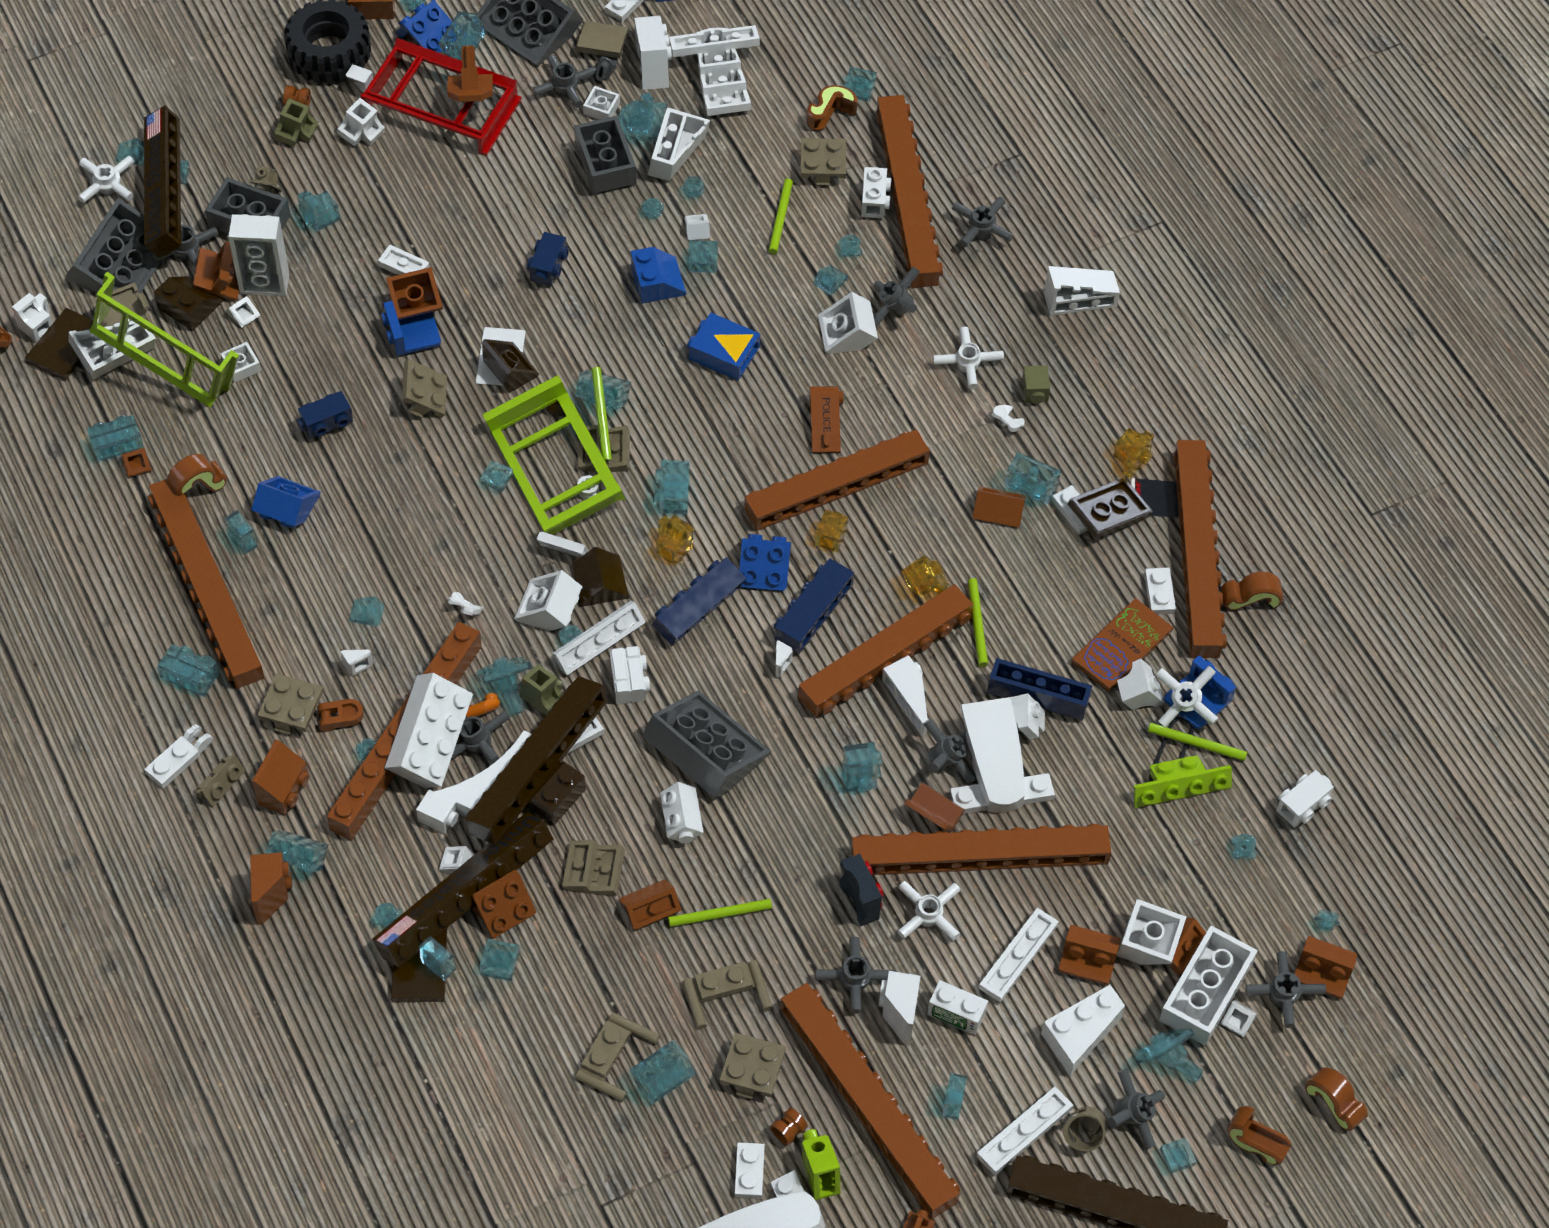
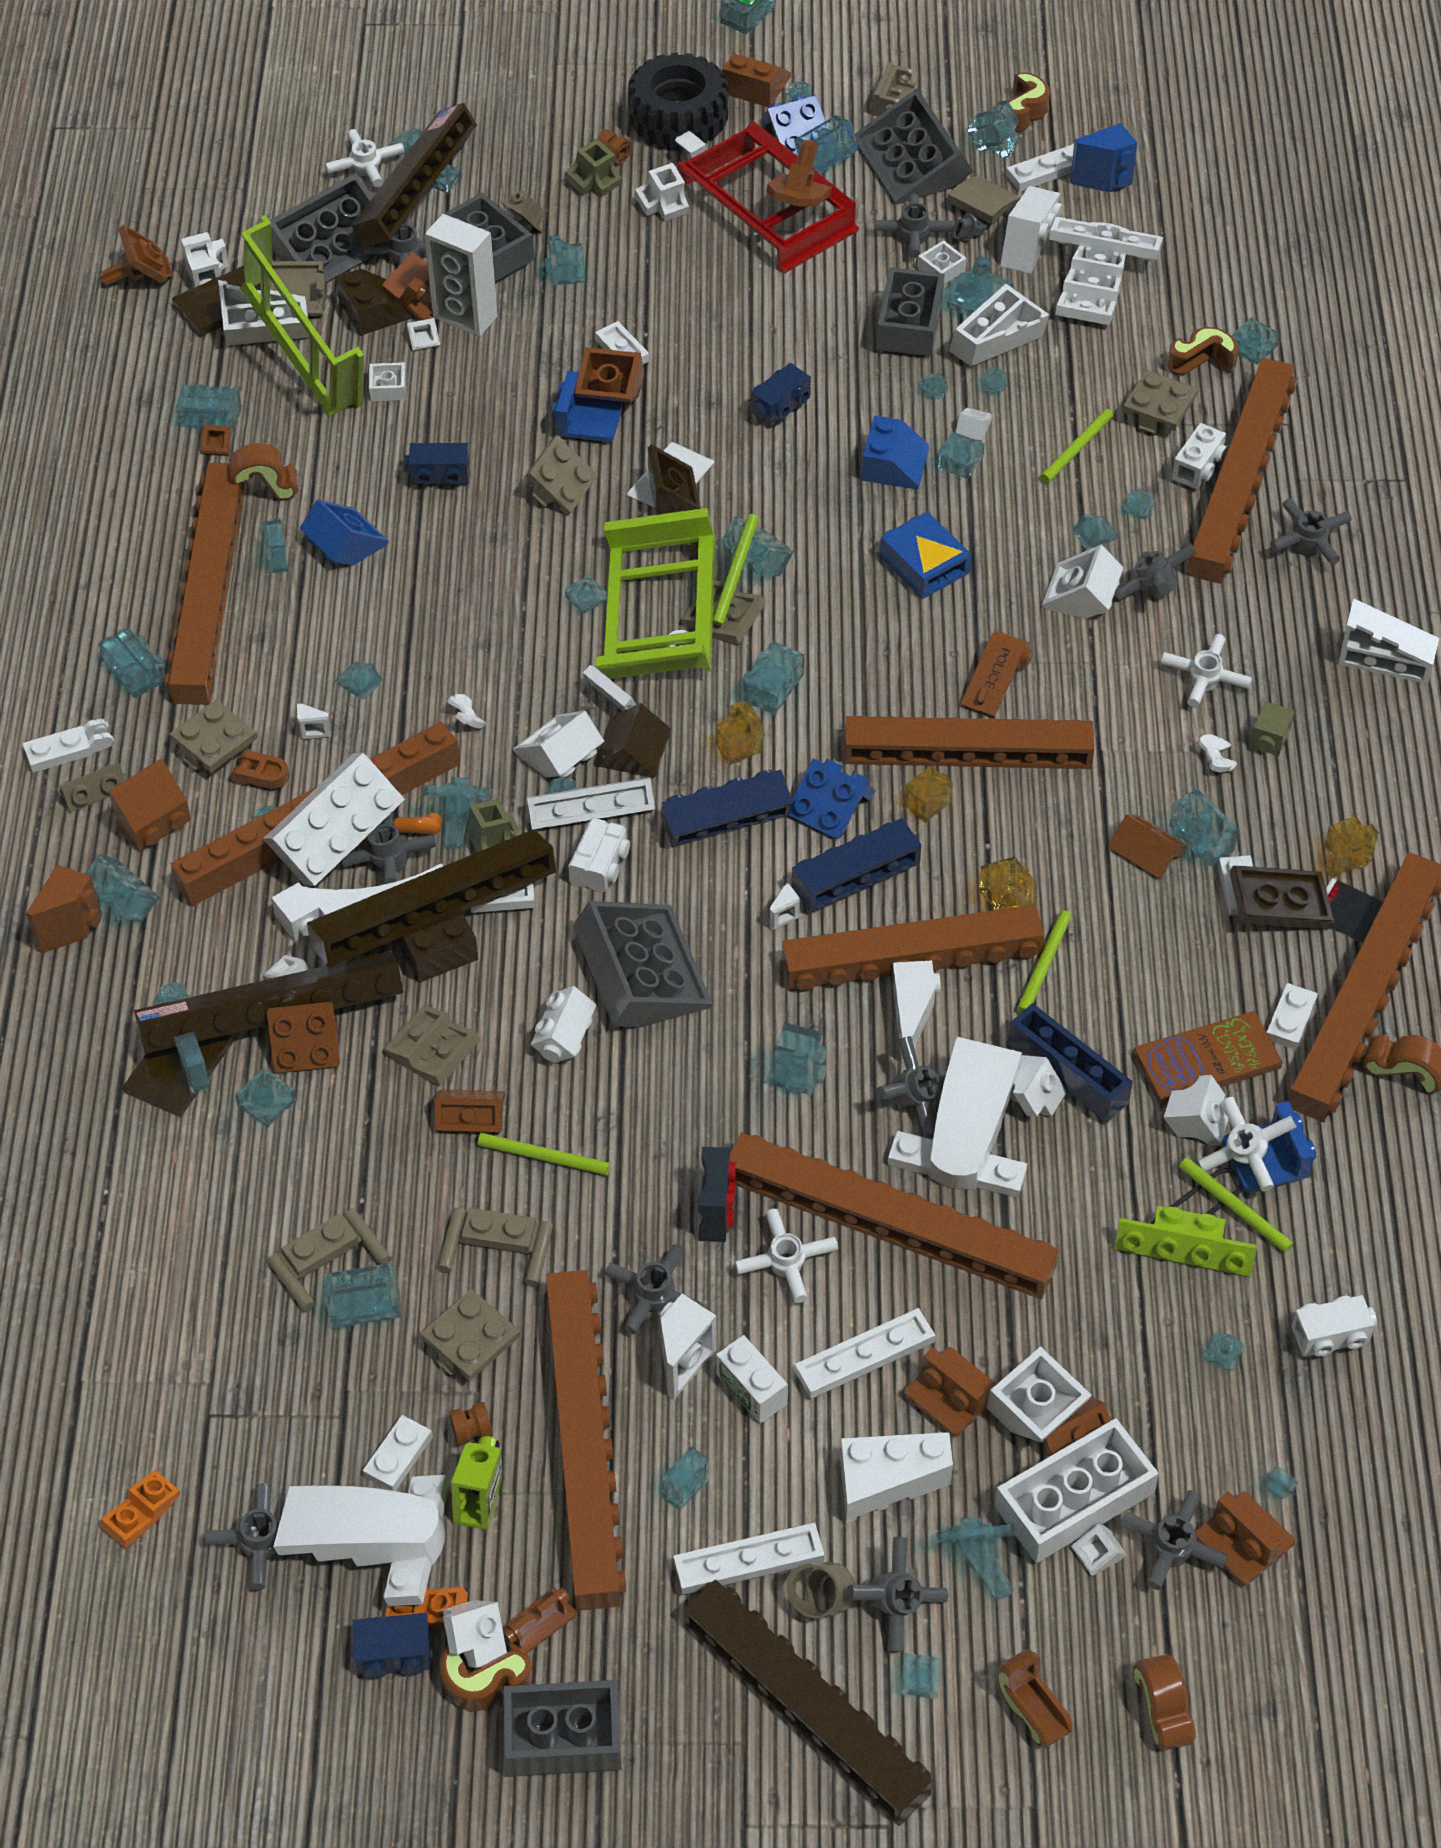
camera: 30 degrees right, 5 degrees down
(935, 807) = (864, 1144): dark orange panel -> none

